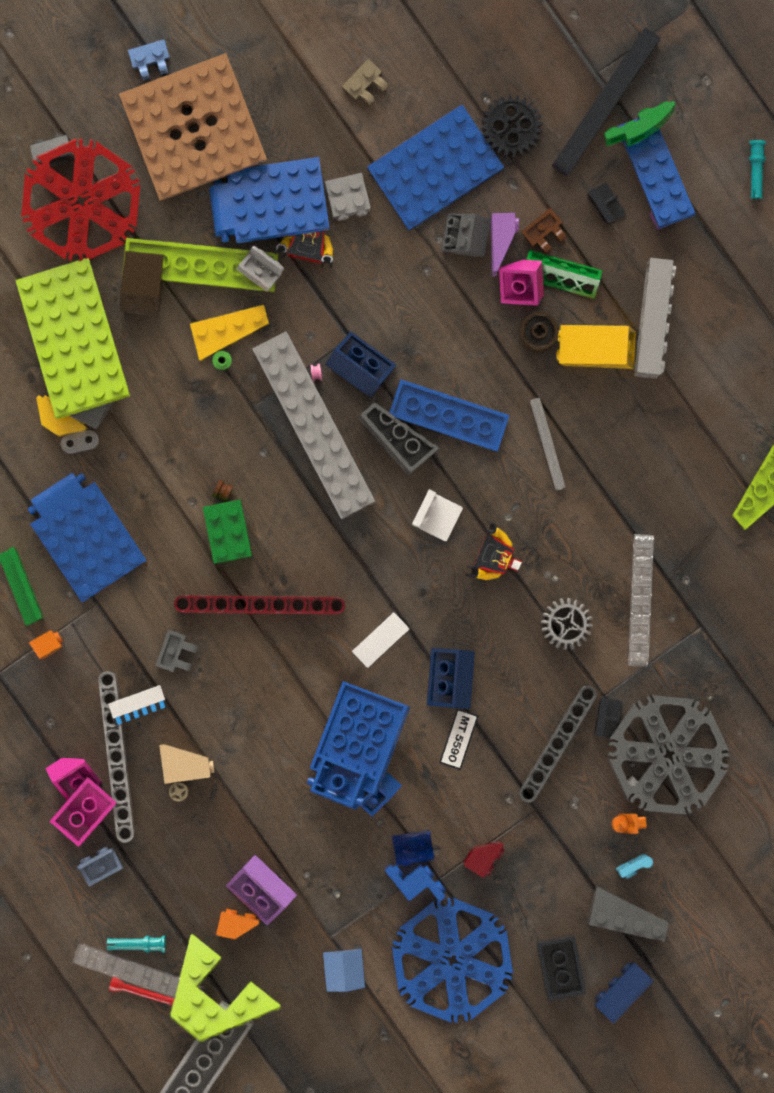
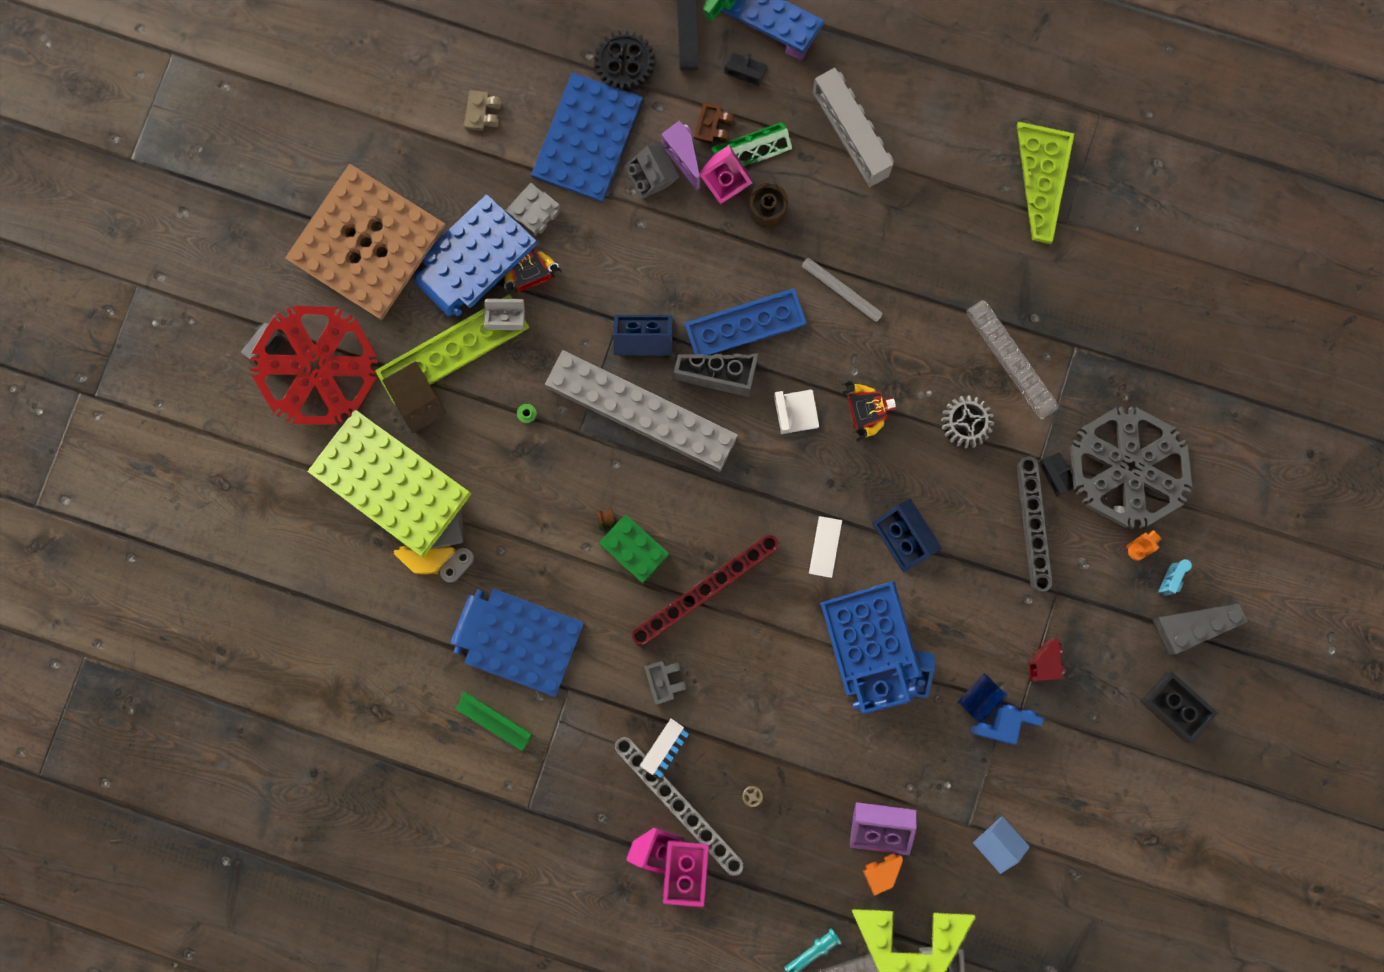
camera: 30 degrees left, 5 degrees down
(46, 644) = (551, 753): orange slope -> none
(101, 866) = (733, 909): sand blue bracket -> none
(148, 55) = (288, 212): medium blue plate -> none
(184, 765) = (741, 770): tan slope -> none
(221, 331) = (508, 391): yellow wing -> none
(316, 372) = (611, 366): bright pink bush -> none
(458, 739) = (950, 581): white sticker -> none
(465, 948) = (1080, 787): blue plate -> none
(597, 346) = (823, 183): yellow slope -> none
(622, 991) = (1245, 689): dark blue slope -> none

